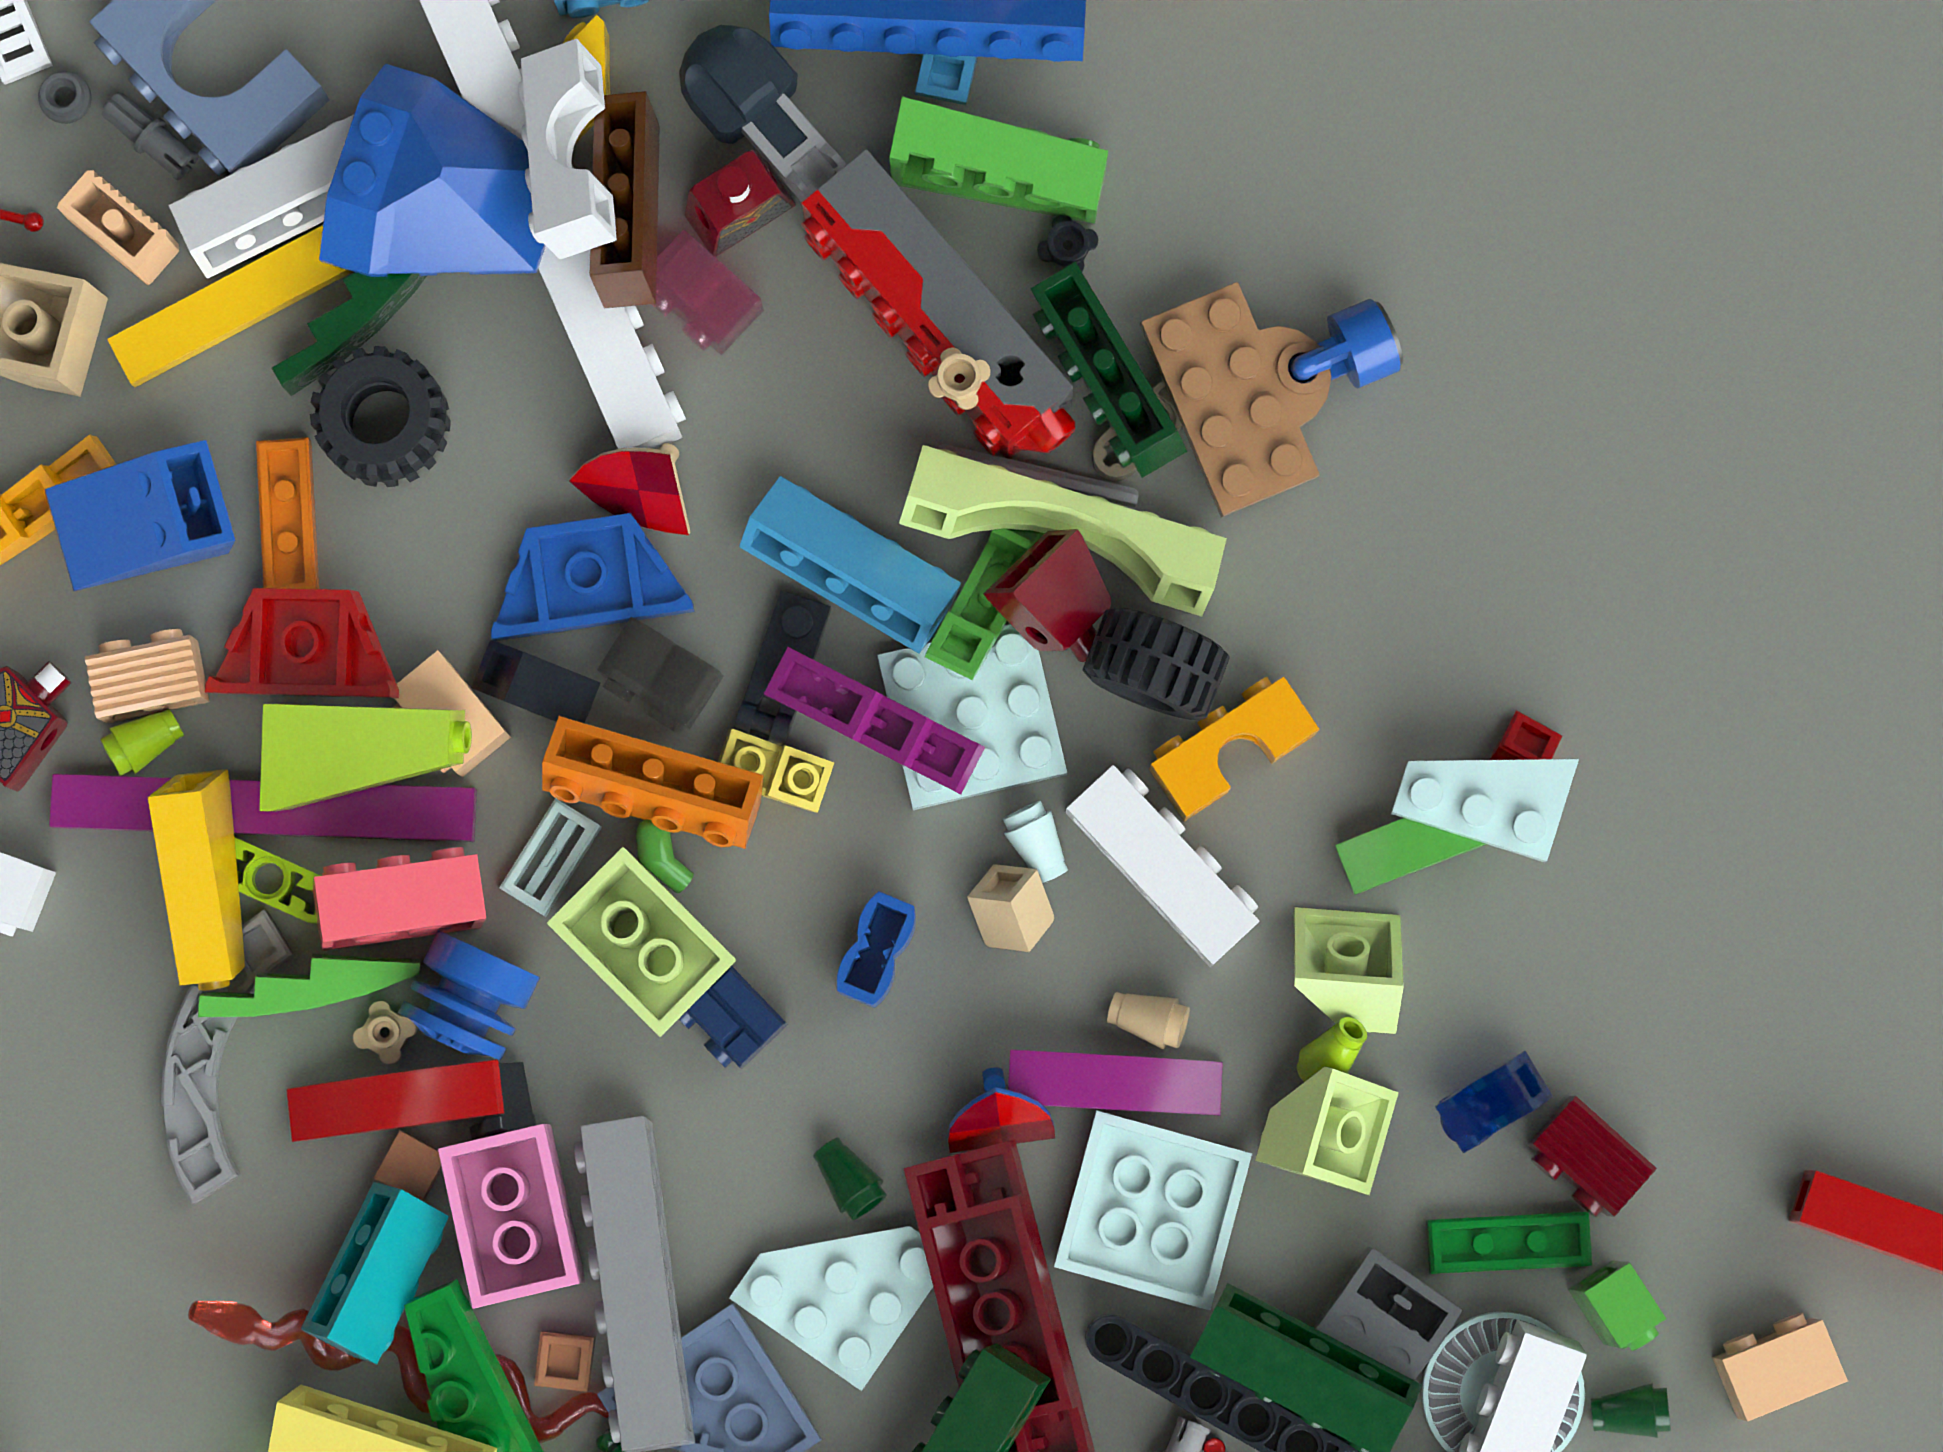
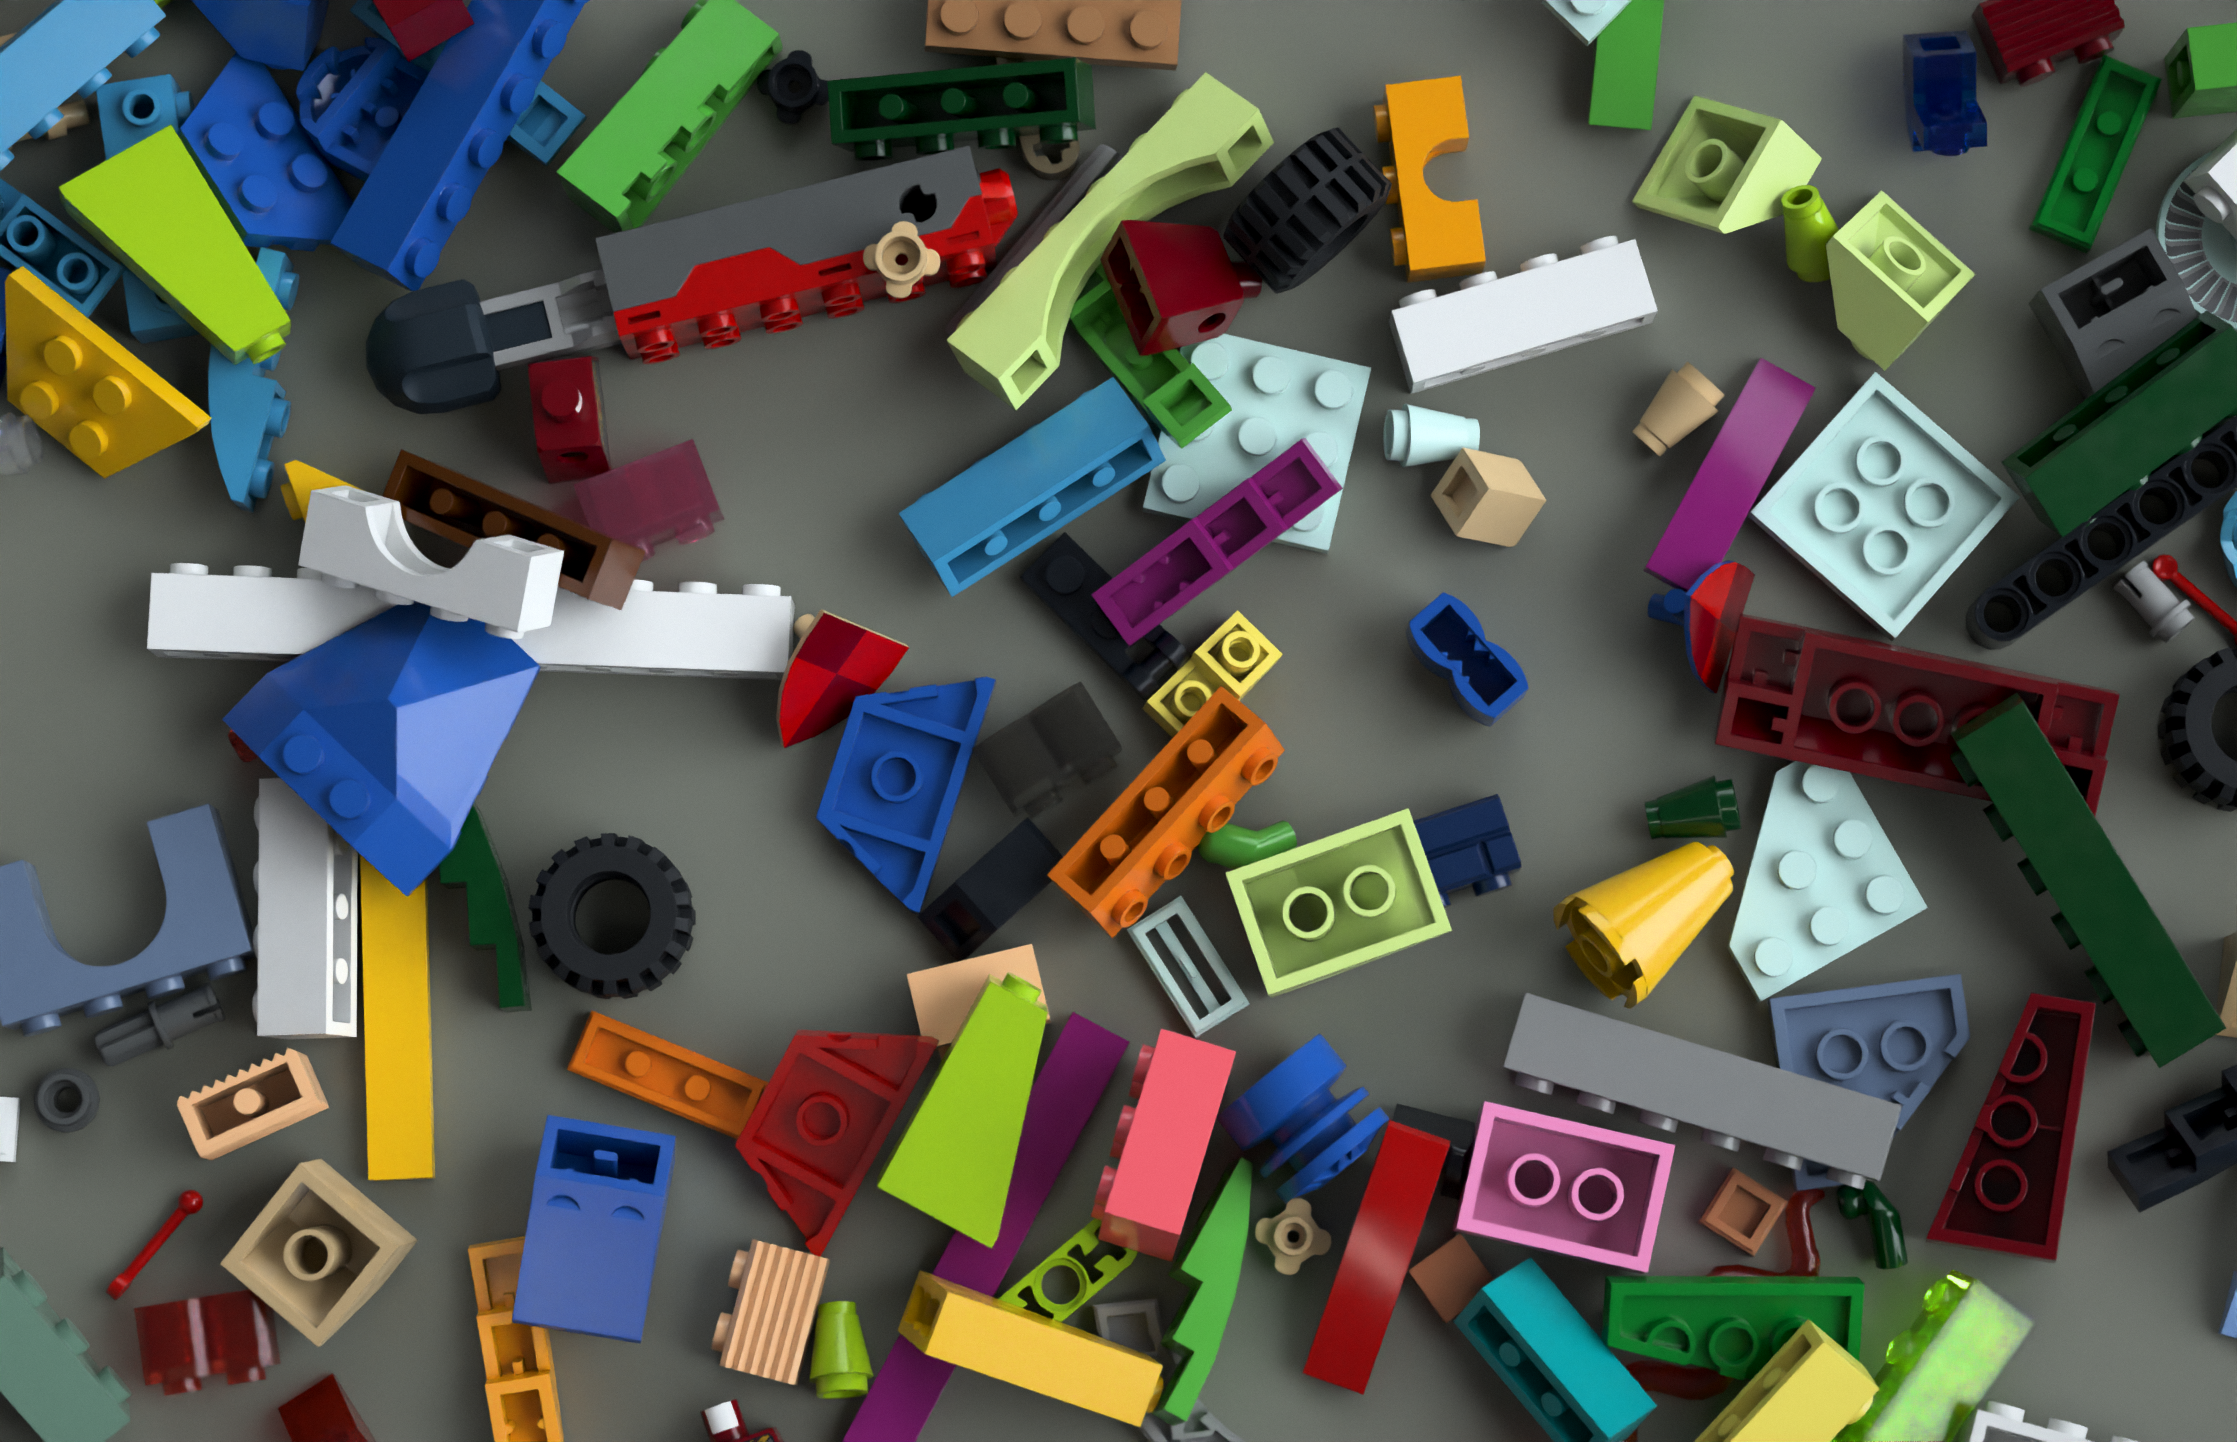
camera: 65 degrees left, 0 degrees up
(748, 1180) = (1644, 918): none -> yellow cone

